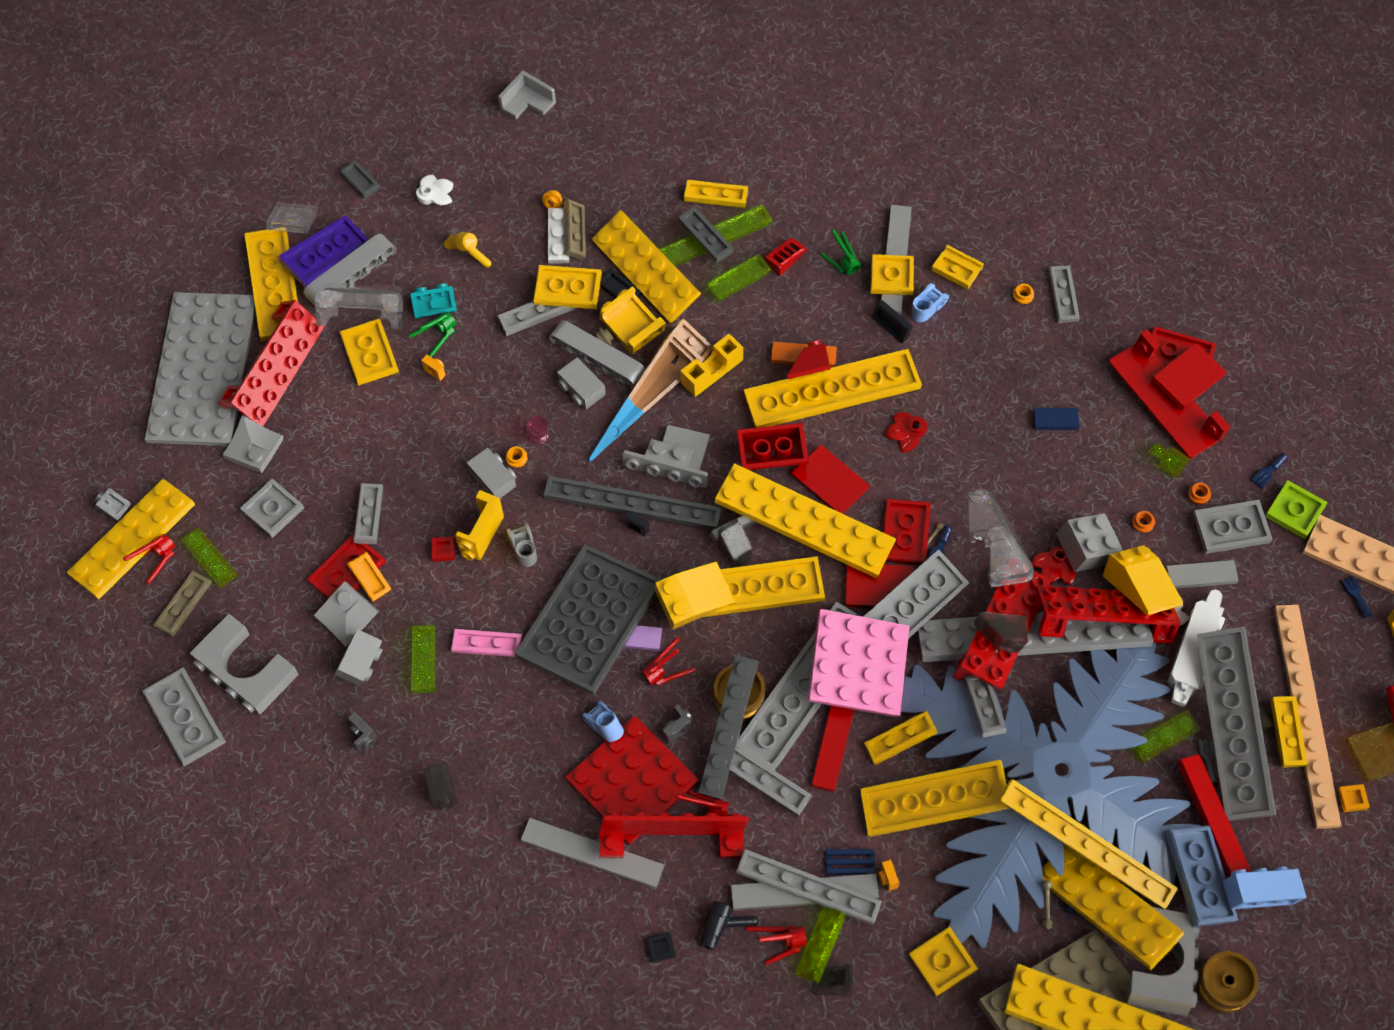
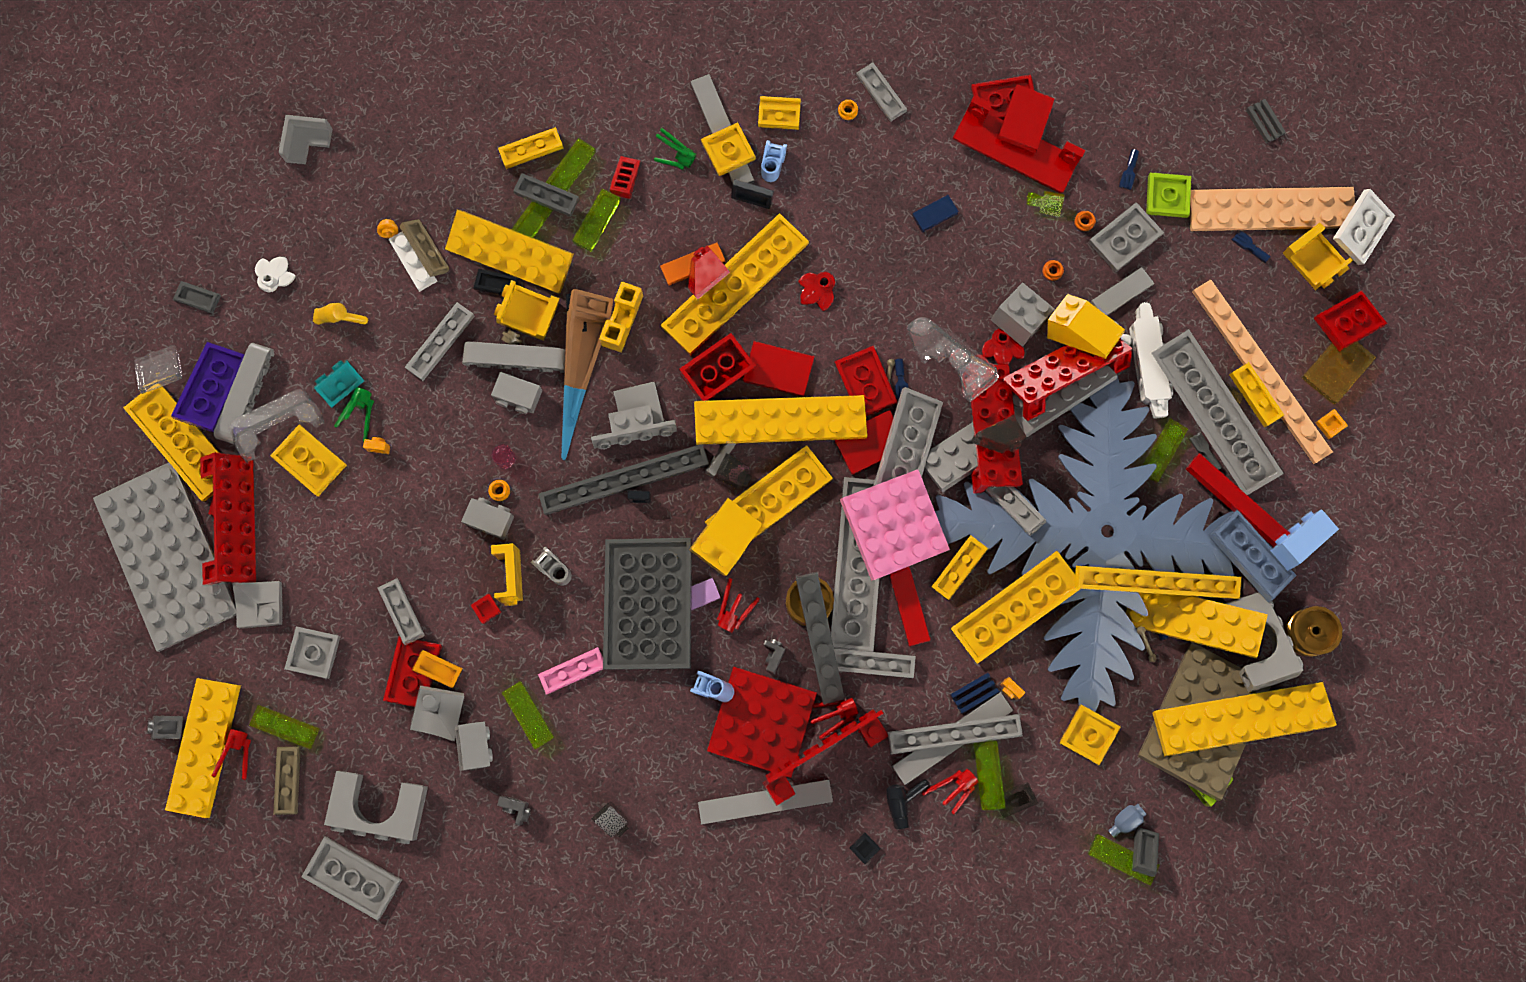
camera: 30 degrees left, 15 degrees up
(567, 287) = (451, 308): yellow tile -> none

